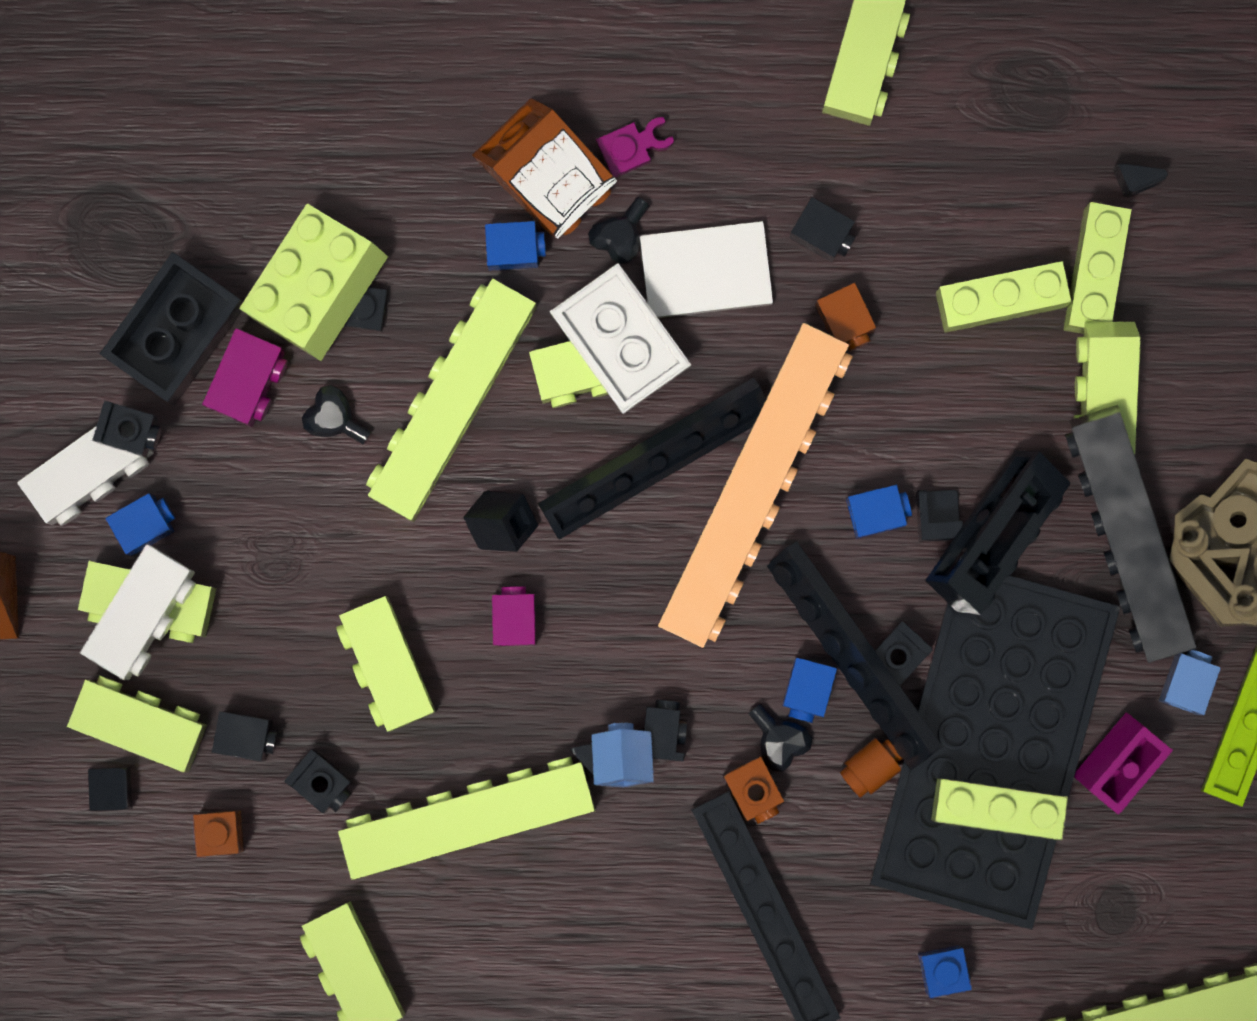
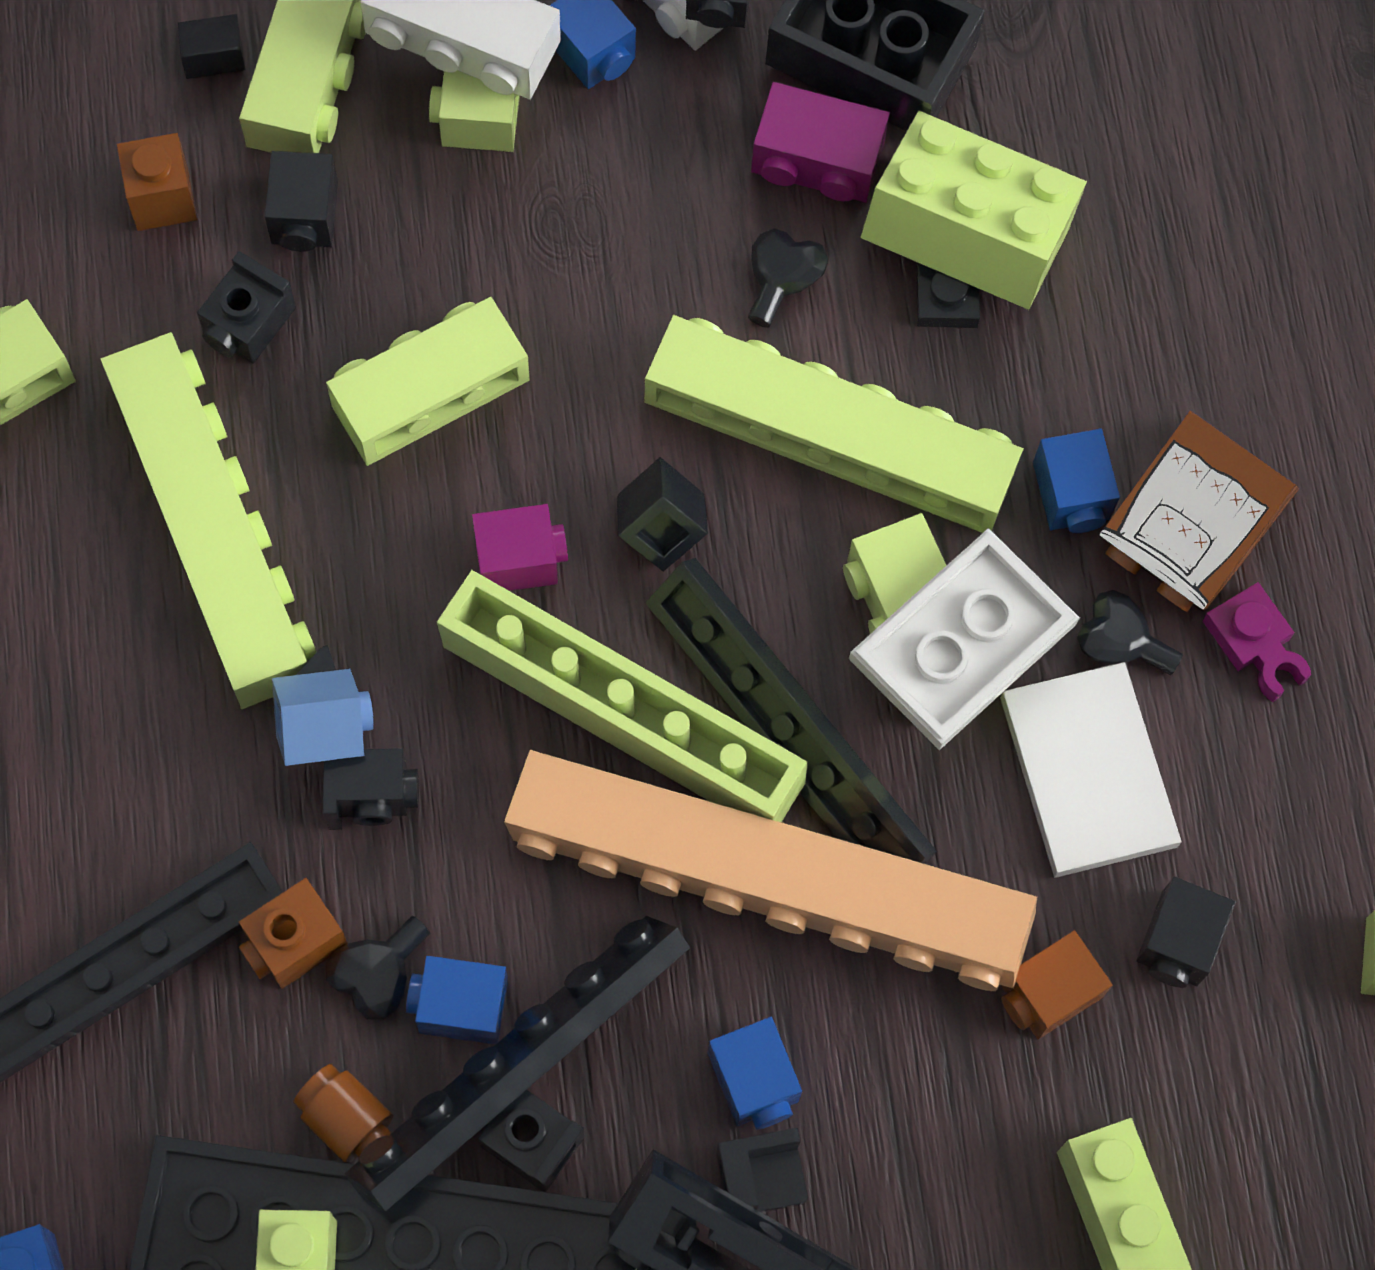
camera: 75 degrees right, 15 degrees down
(632, 564) = (620, 701): none -> yellowish green brick

